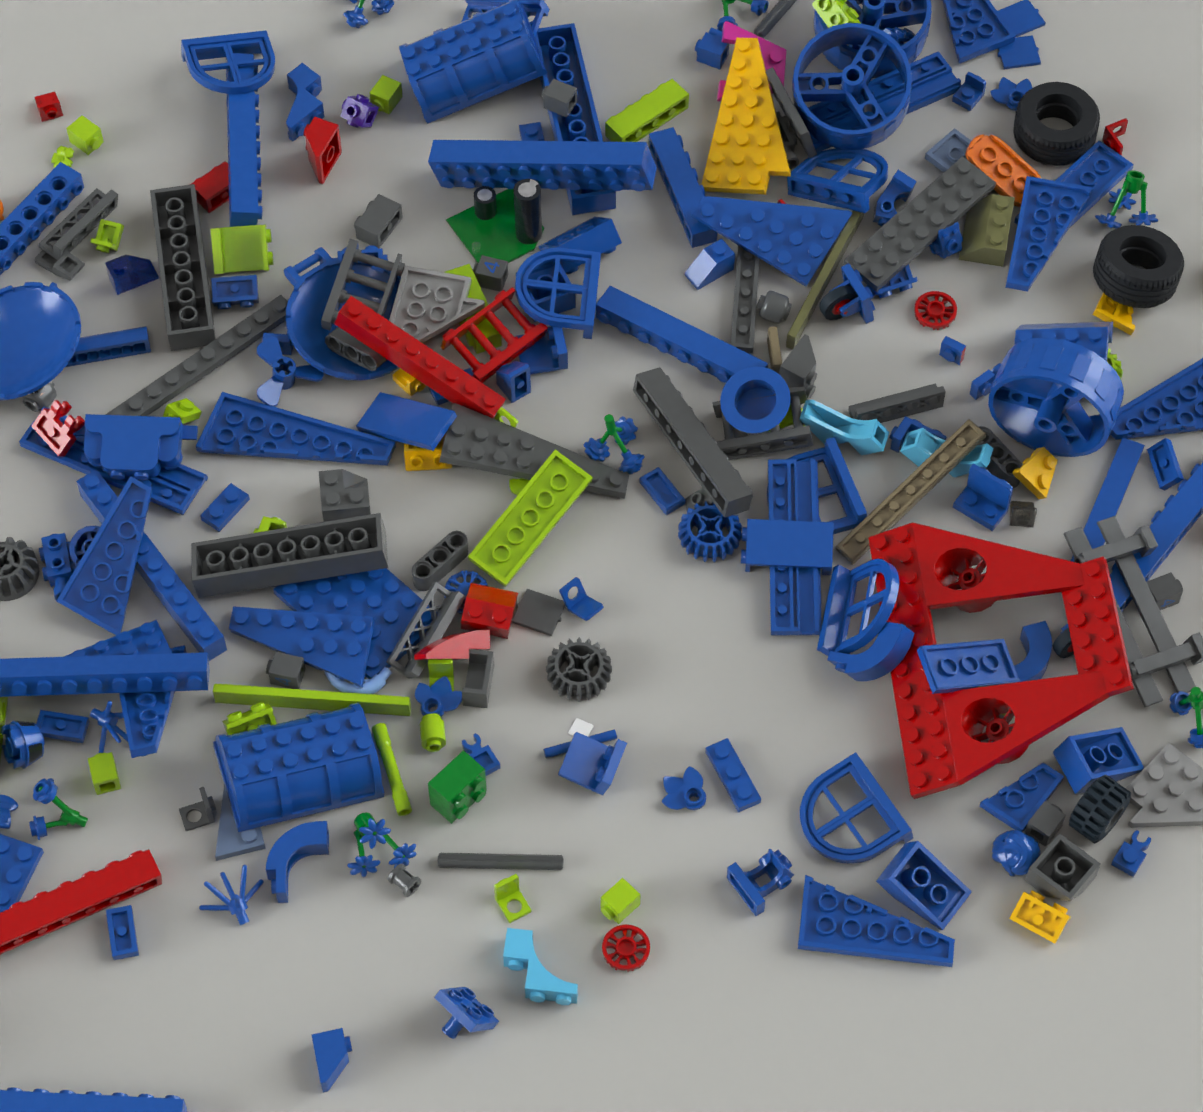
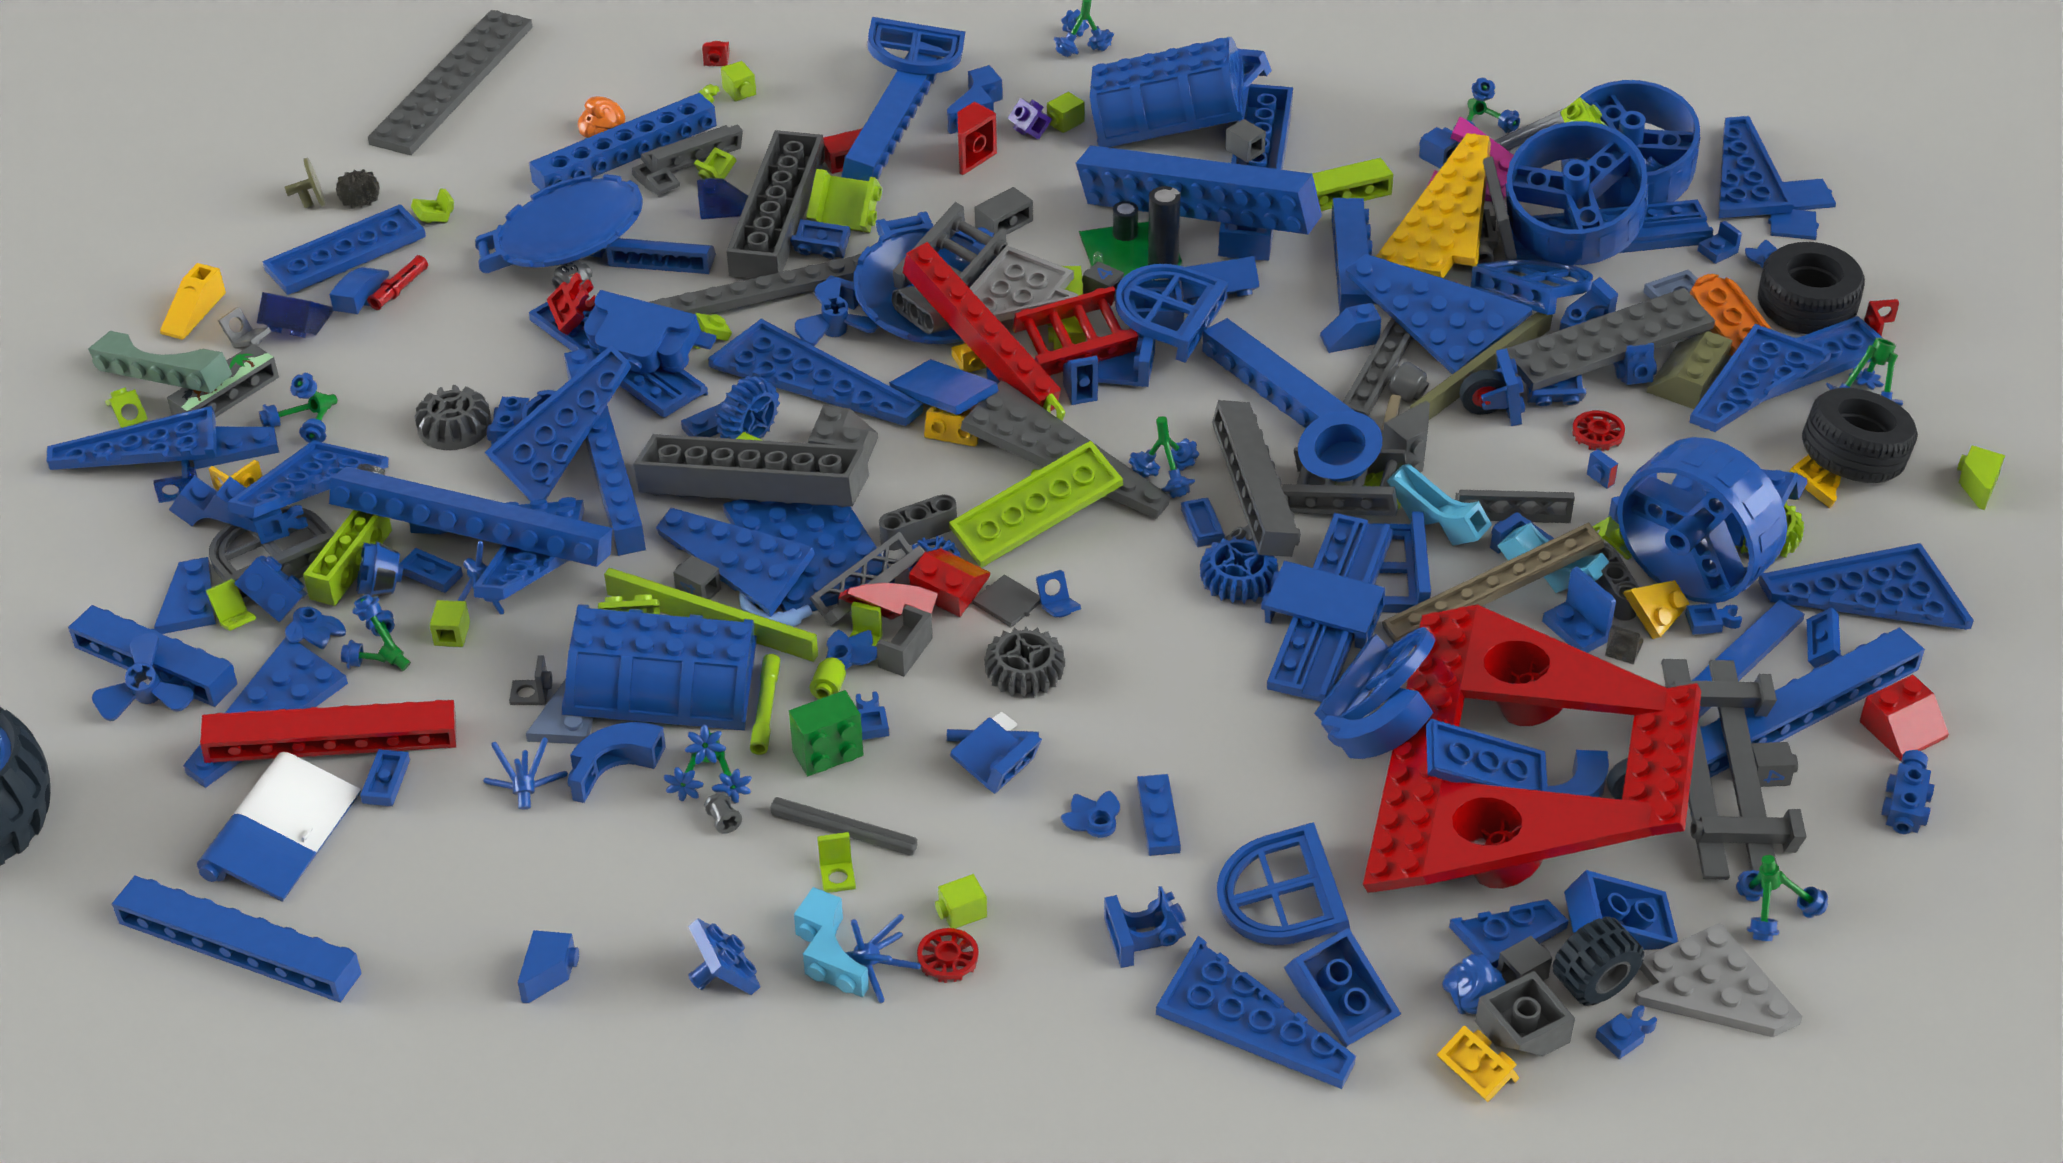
camera: 20 degrees right, 15 degrees down
(59, 1003) = (279, 826): none -> door
(257, 495) = (748, 408): none -> blue gear
(570, 970) = (868, 953): none -> blue plant
(979, 412) = (1611, 533): none -> lime bracket
(1075, 471) = (1710, 619): none -> blue plate

